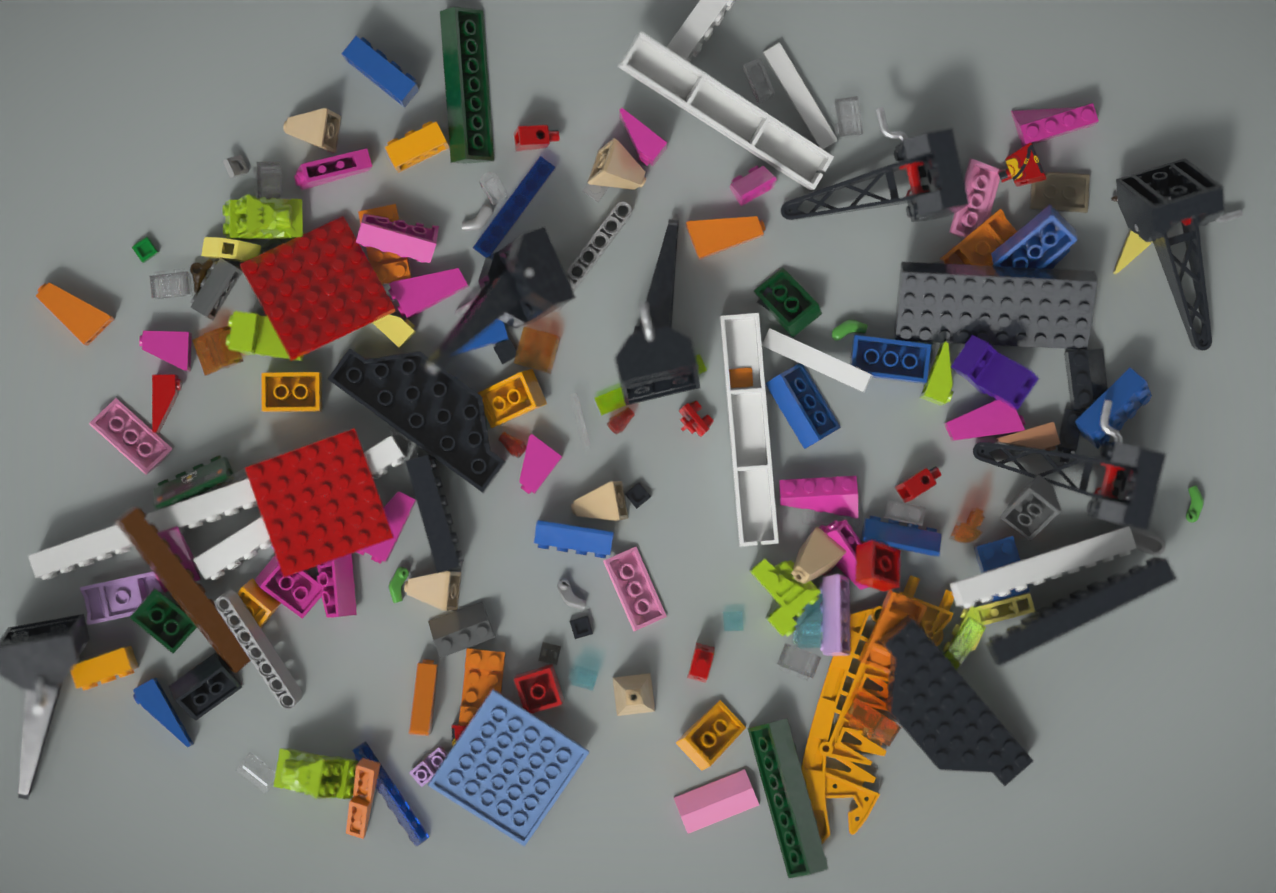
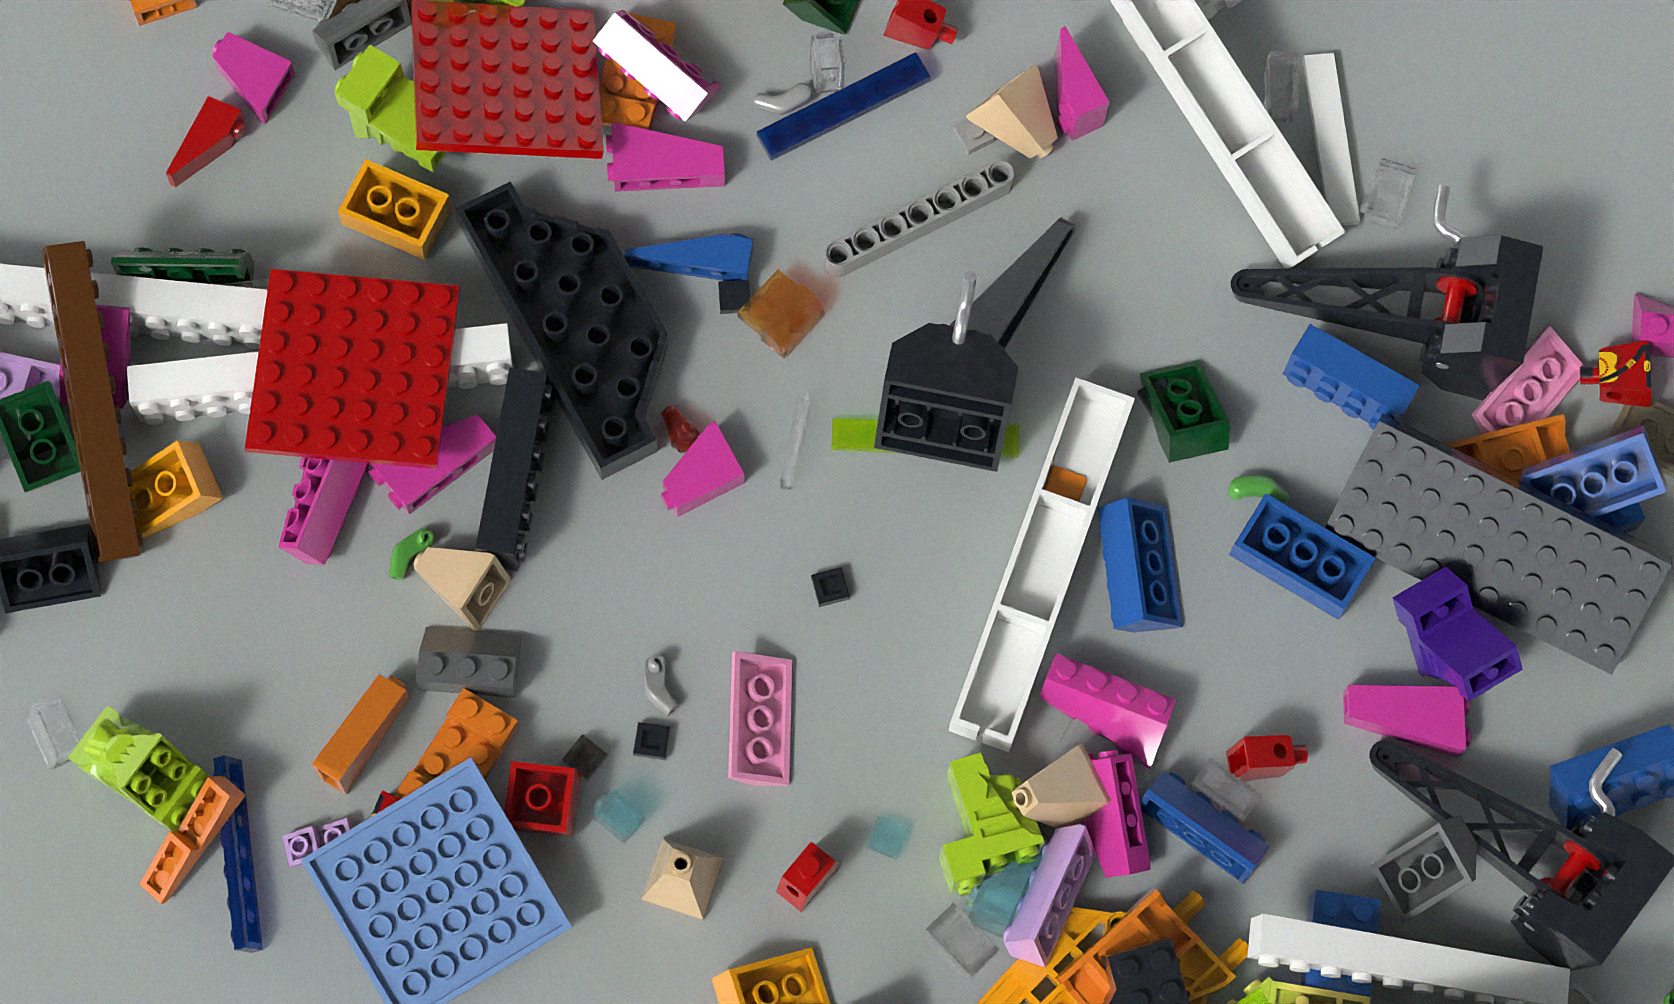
camera: 20 degrees right, 15 degrees down
(131, 436) = (132, 171): bright pink slope -> none
(213, 351) = (314, 110): clear orange brick -> none
(259, 649) = (150, 524): light grey beam -> none
(296, 592) = (249, 483): dark pink slope -> none
(396, 329) = (588, 190): light yellow slope -> none
(512, 398) = (712, 363): light orange slope -> none
(515, 286) = (792, 205): black piece -> none
(573, 537) = (704, 599): blue slope -> none
(602, 503) = (773, 569): tan slope -> none
(620, 421) = (854, 467): clear red cone -> none
(693, 421) = (964, 513): red hips -> none
(722, 234) = (1132, 274): orange slope -> none
(752, 185) = (1207, 225): dark pink slope -> none
(817, 360) = (1192, 507): white tile -> none
(873, 243) = (1348, 378): none -> blue brick
(877, 566) = (1150, 842): red brick -> none
(939, 379) = (1357, 627): lime slope -> none
(967, 531) = (1313, 862): clear orange brick -> none
(1038, 438) = (1485, 769): nougat slope -> none
(1069, 433) = (1533, 787): black hinge -> none
(1085, 377) = (1591, 713): black slope -> none

